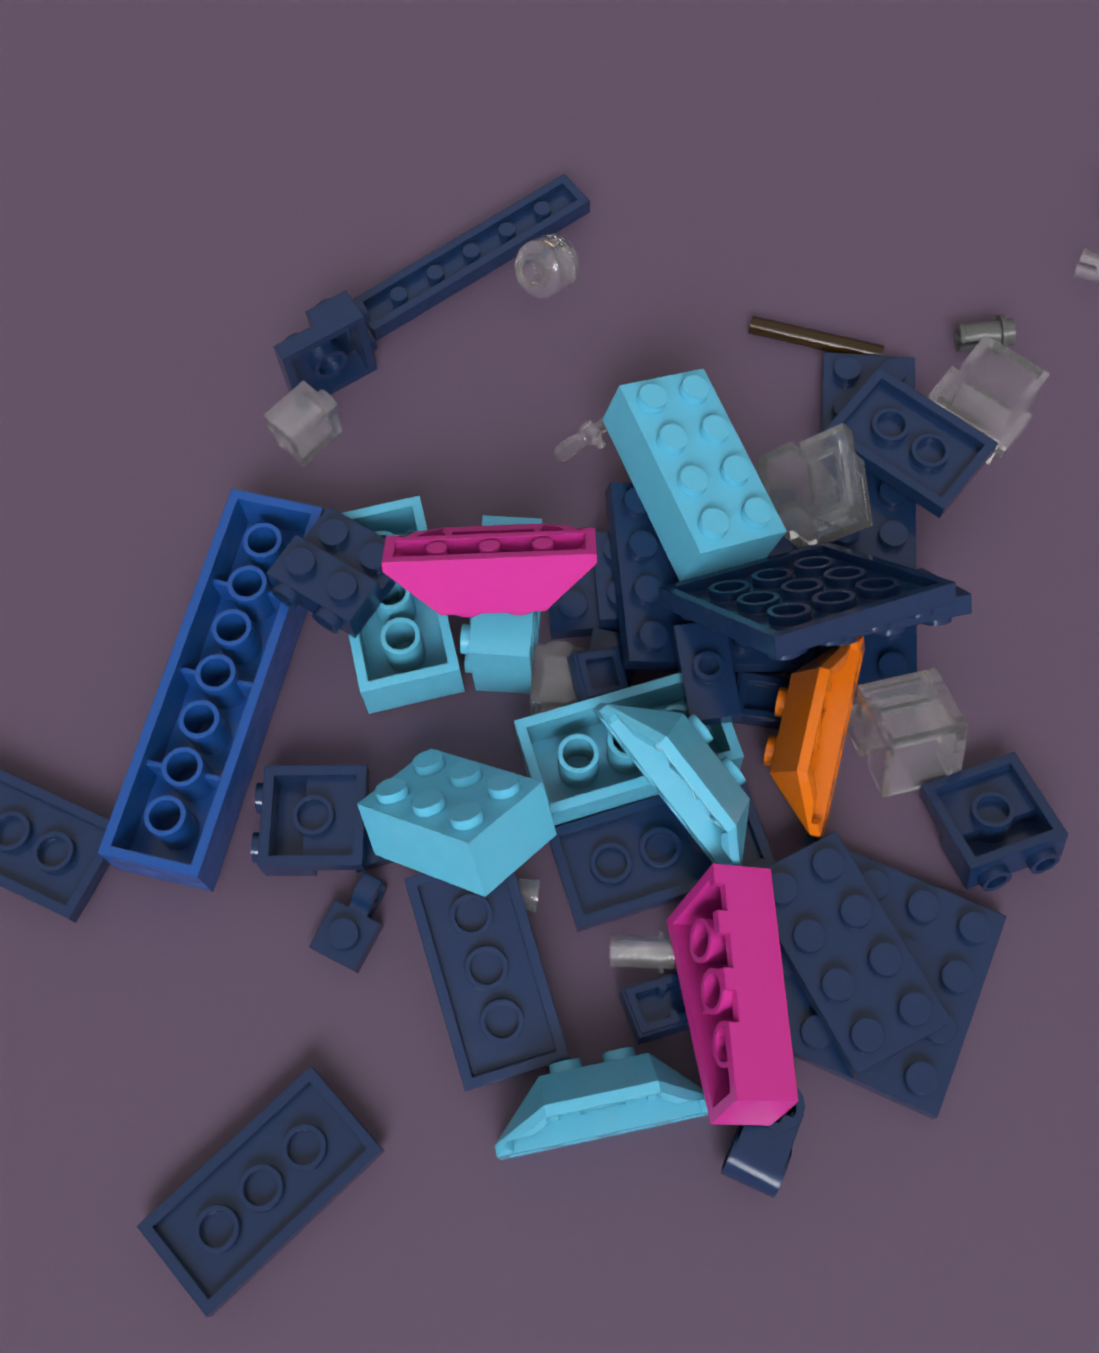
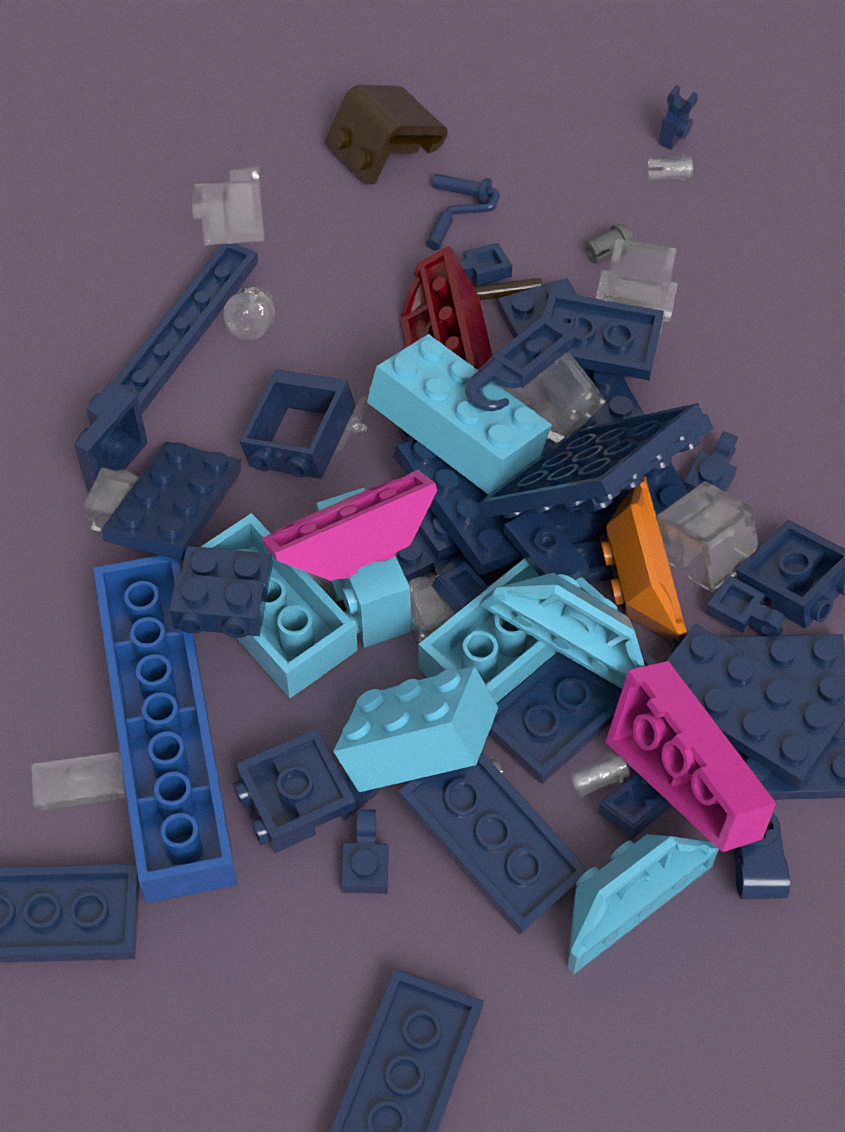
camera: 30 degrees left, 10 degrees down
(108, 705) = (78, 781): none -> clear plate
(354, 446) = (172, 500): none -> dark blue plate
(510, 386) = (287, 391): none -> dark blue window
(583, 141) = (231, 209): none -> clear plate
(754, 350) = (446, 308): none -> dark red wedge
(789, 441) = (522, 359): none -> dark blue plate
(797, 99) = (380, 123): none -> dark brown piece
(825, 305) = (486, 264): none -> dark blue plate
(874, 219) = (487, 195): none -> dark blue piece
(906, 828) = (743, 605): none -> dark blue plate
(961, 656) = (714, 468): none -> dark blue plate

